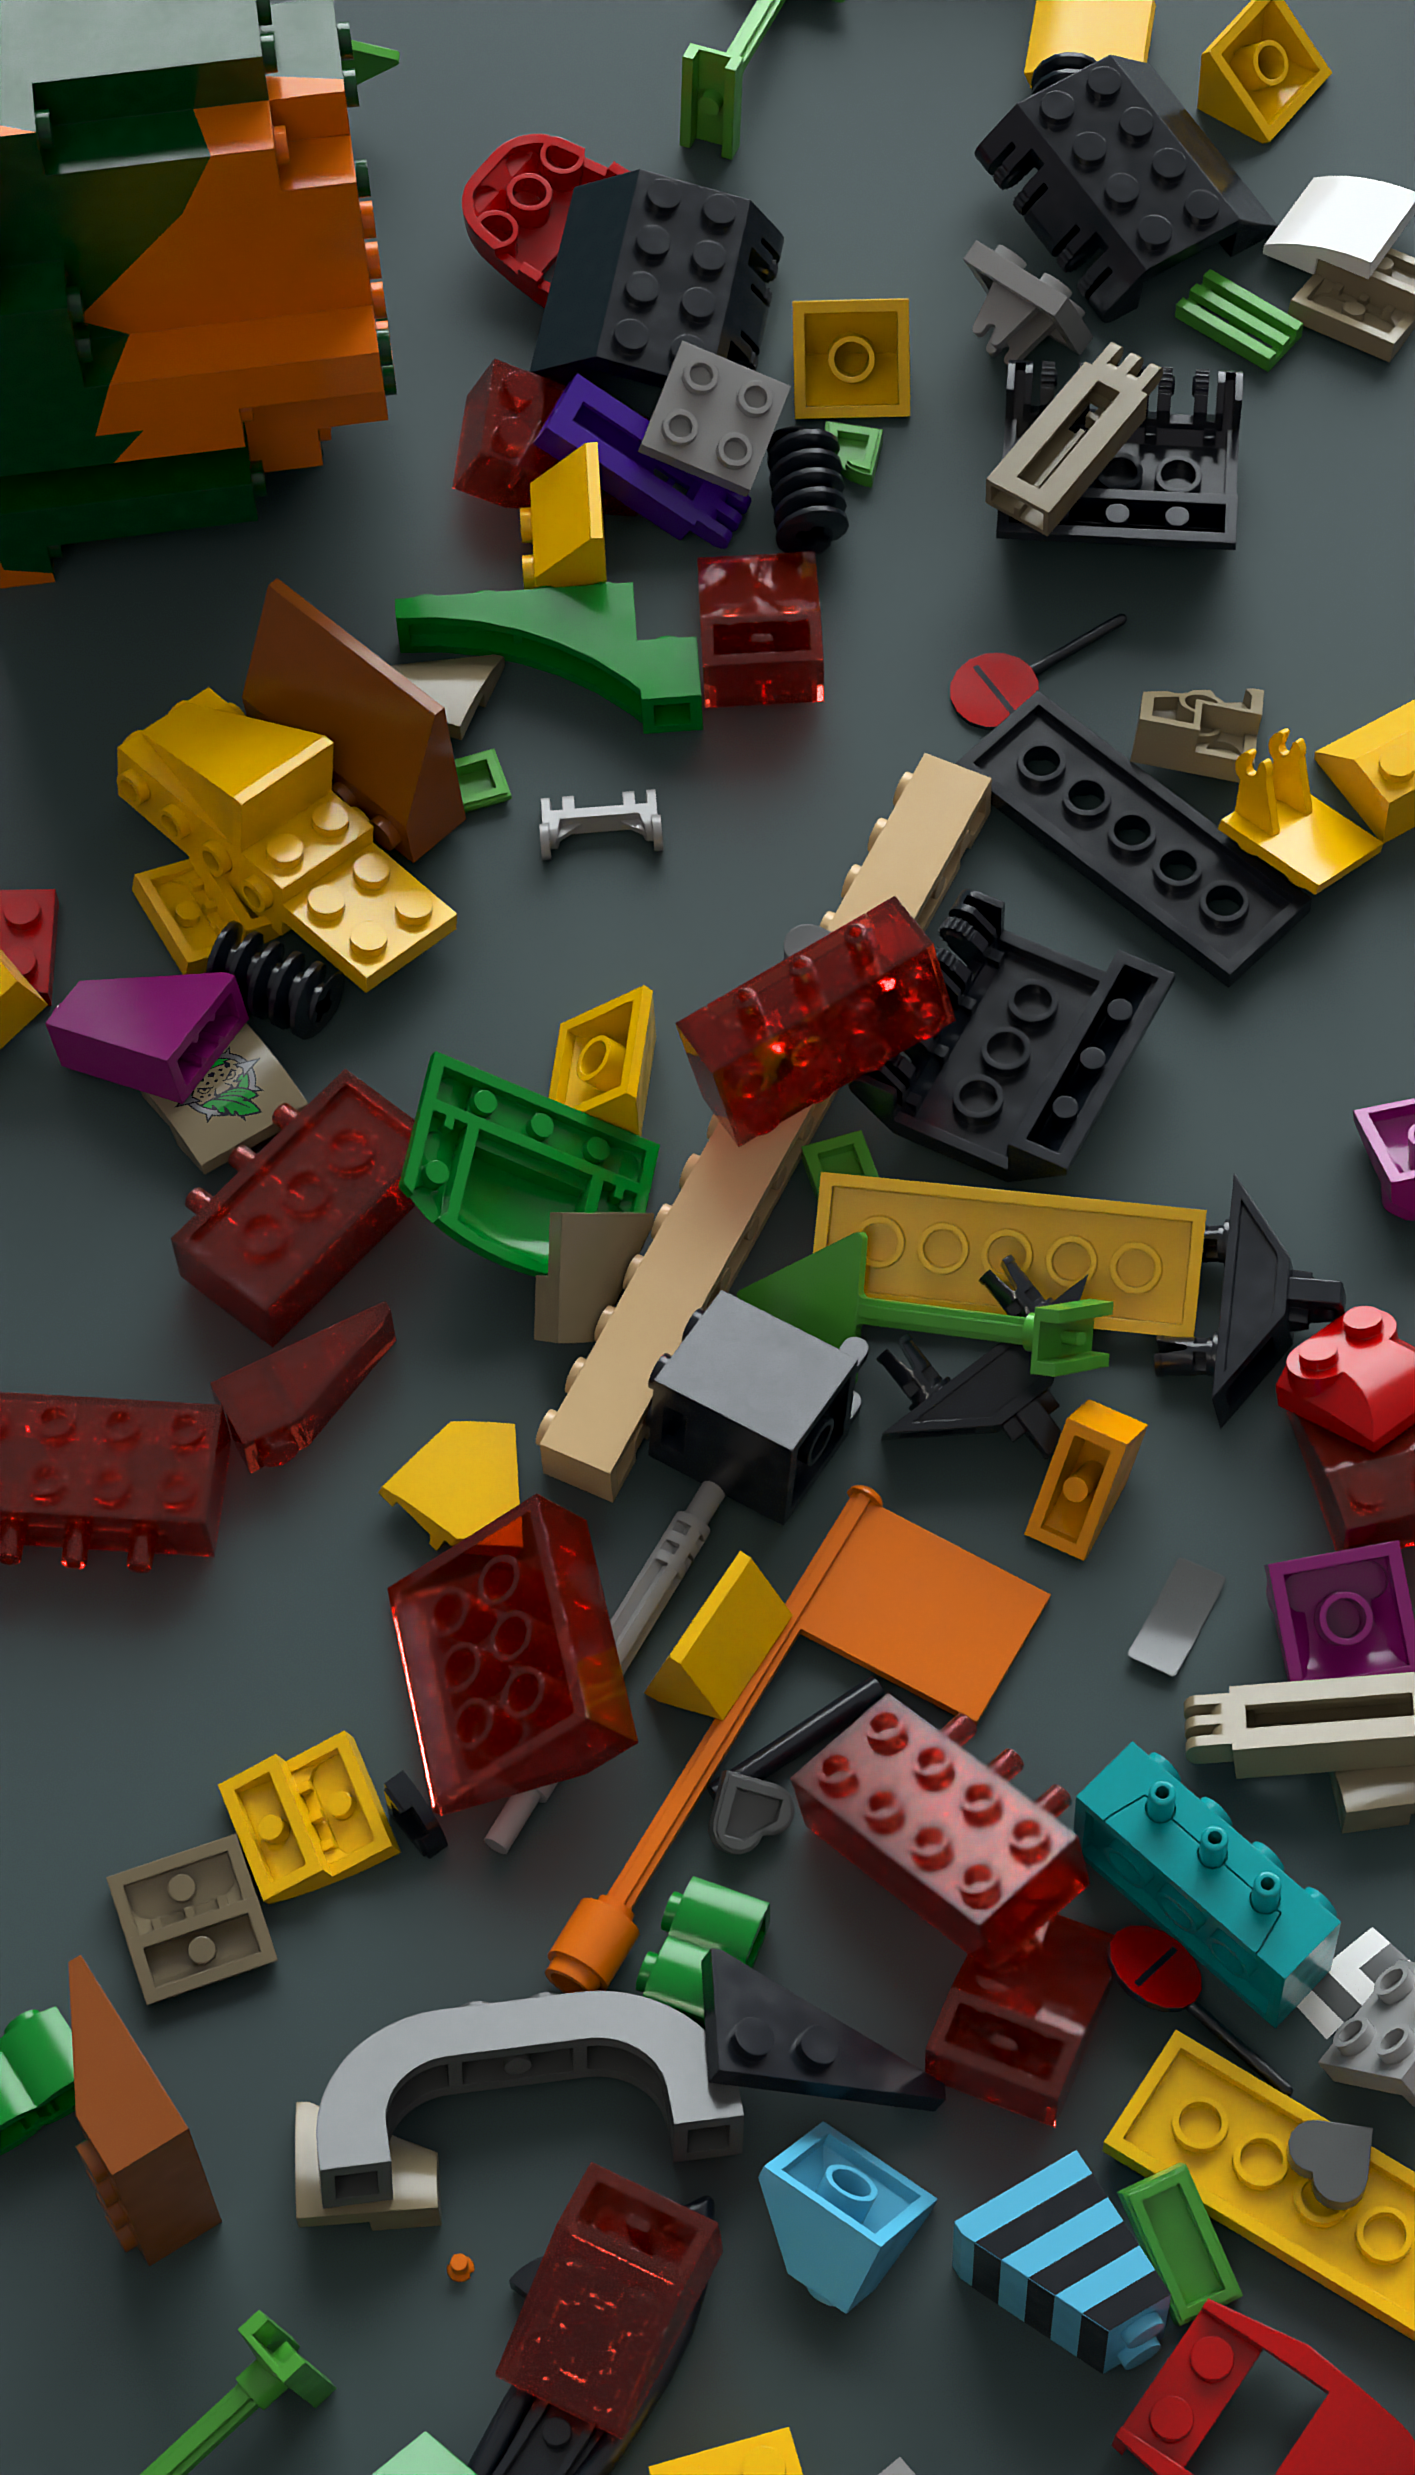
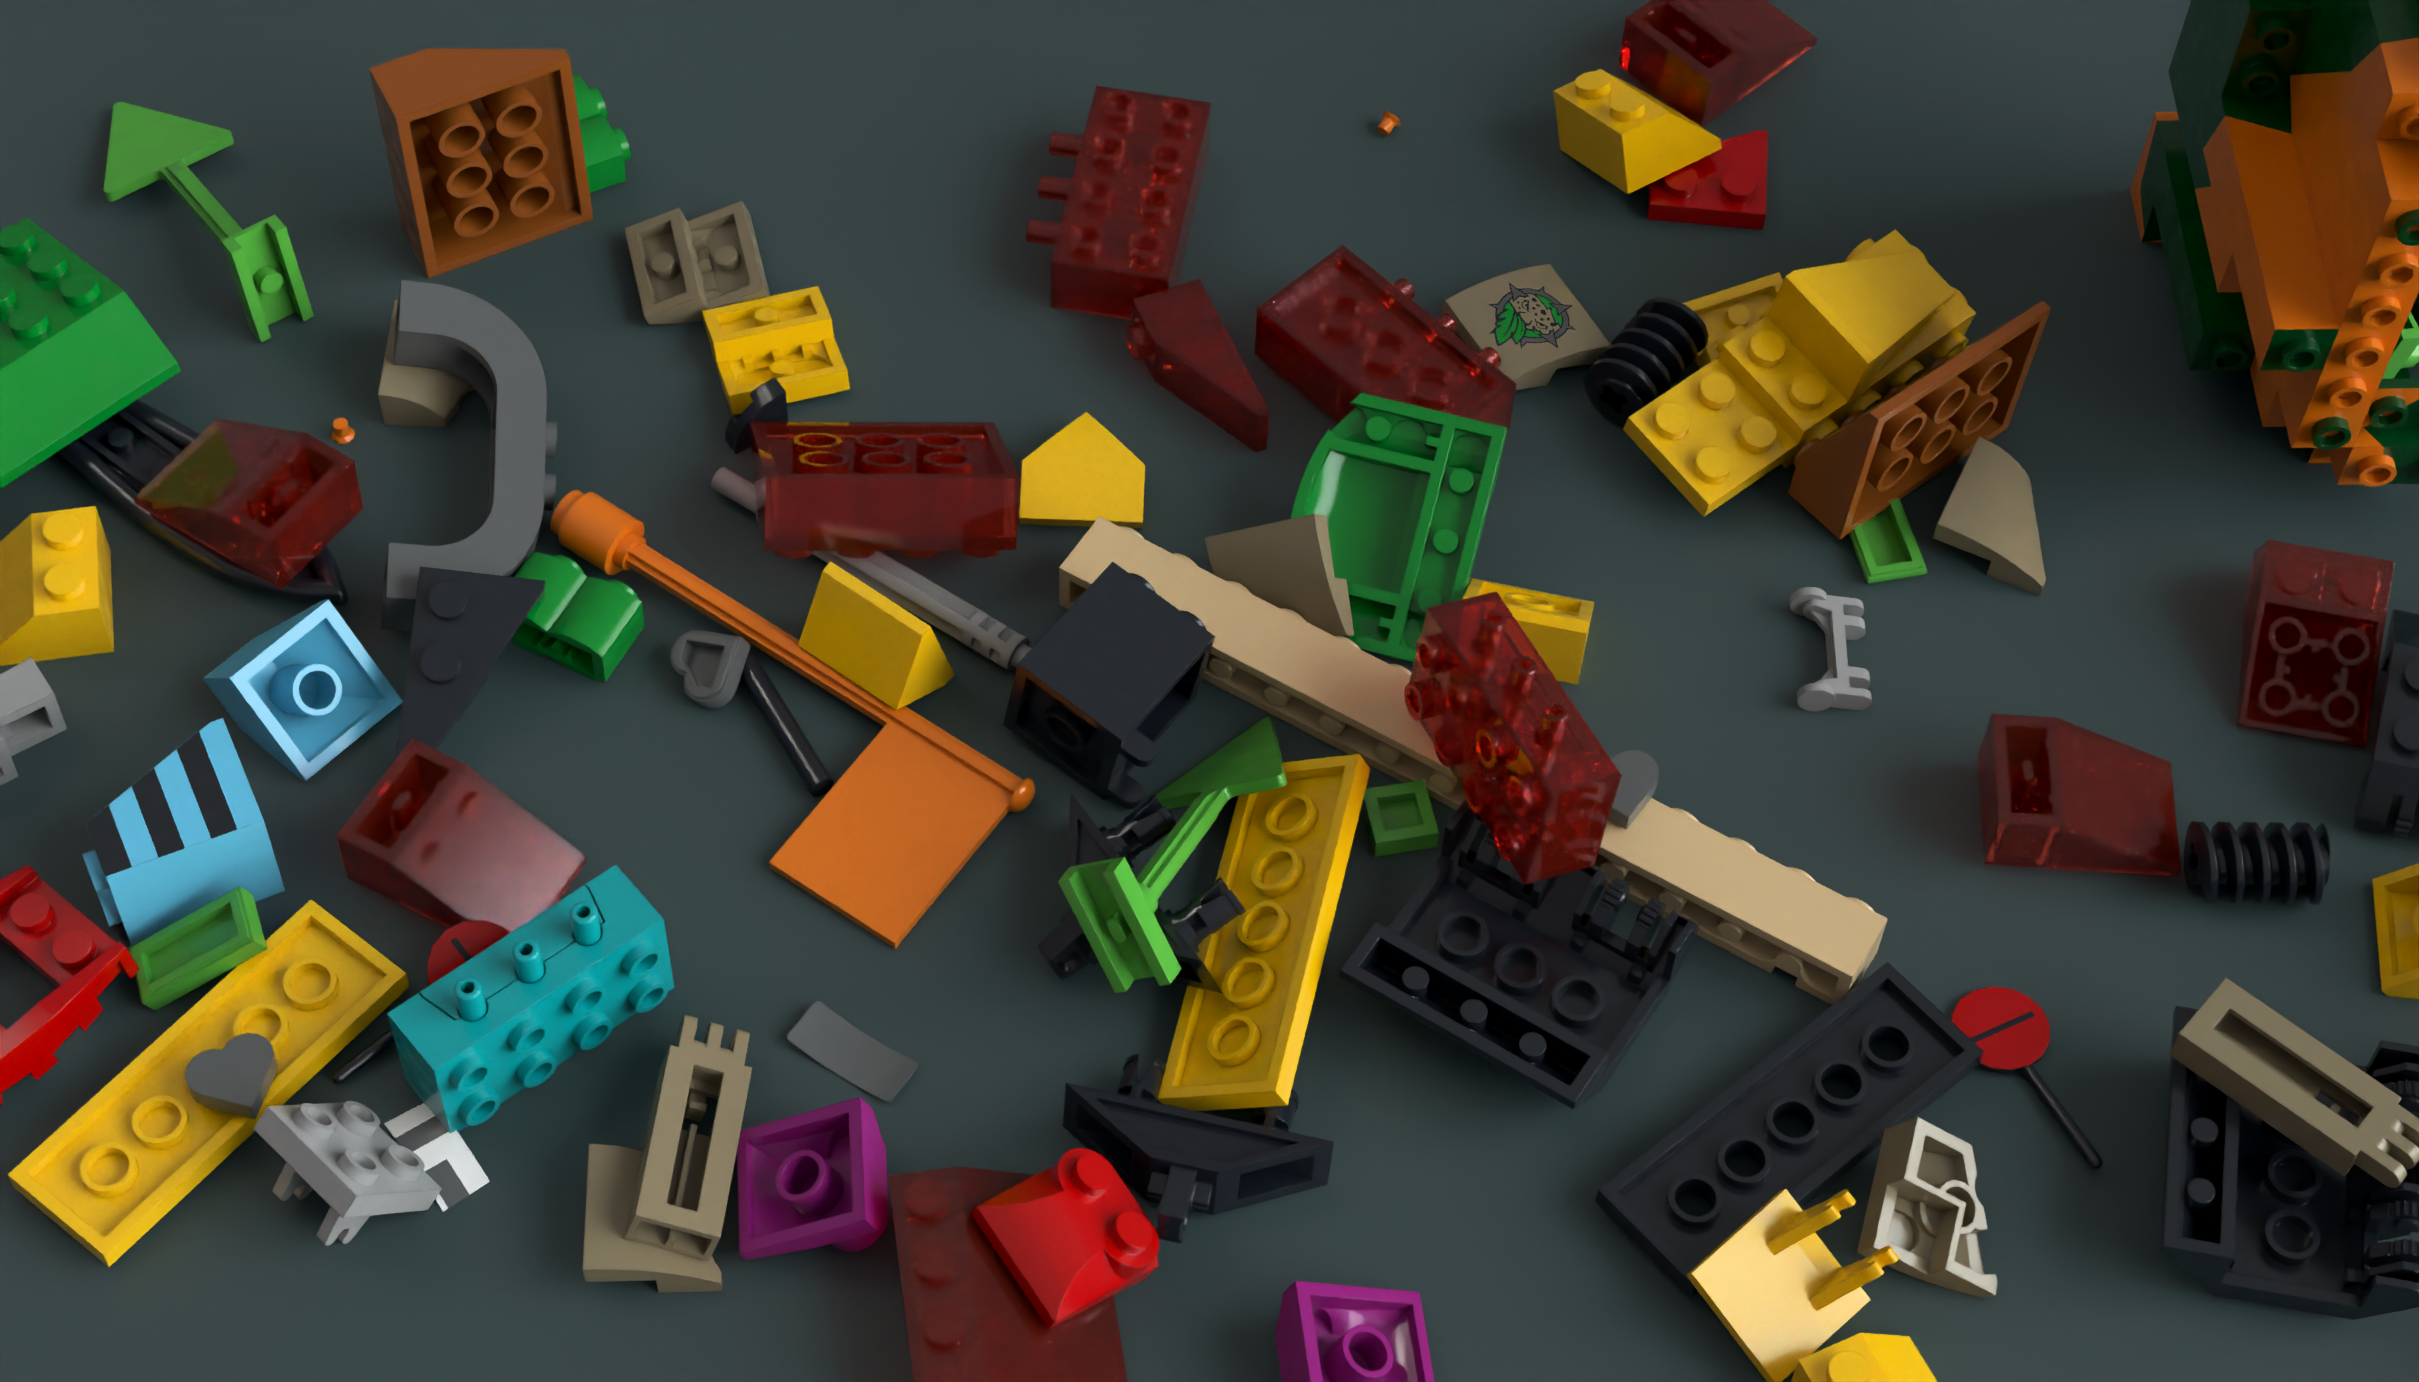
camera: 90 degrees right, 5 degrees down
(149, 1030) = (1587, 262): magenta slope -> none
(566, 524) = (2182, 643): yellow slope -> none
(571, 633) = (2065, 647): green arch -> none
(592, 415) = (2284, 688): dark purple hinge -> none
(714, 418) = (2326, 756): light grey plate -> none
(858, 451) = (2328, 930): bright green tile -> none
(944, 1828) = (632, 784): clear red piece -> none
(1085, 1478) = (1013, 978): light orange slope -> none

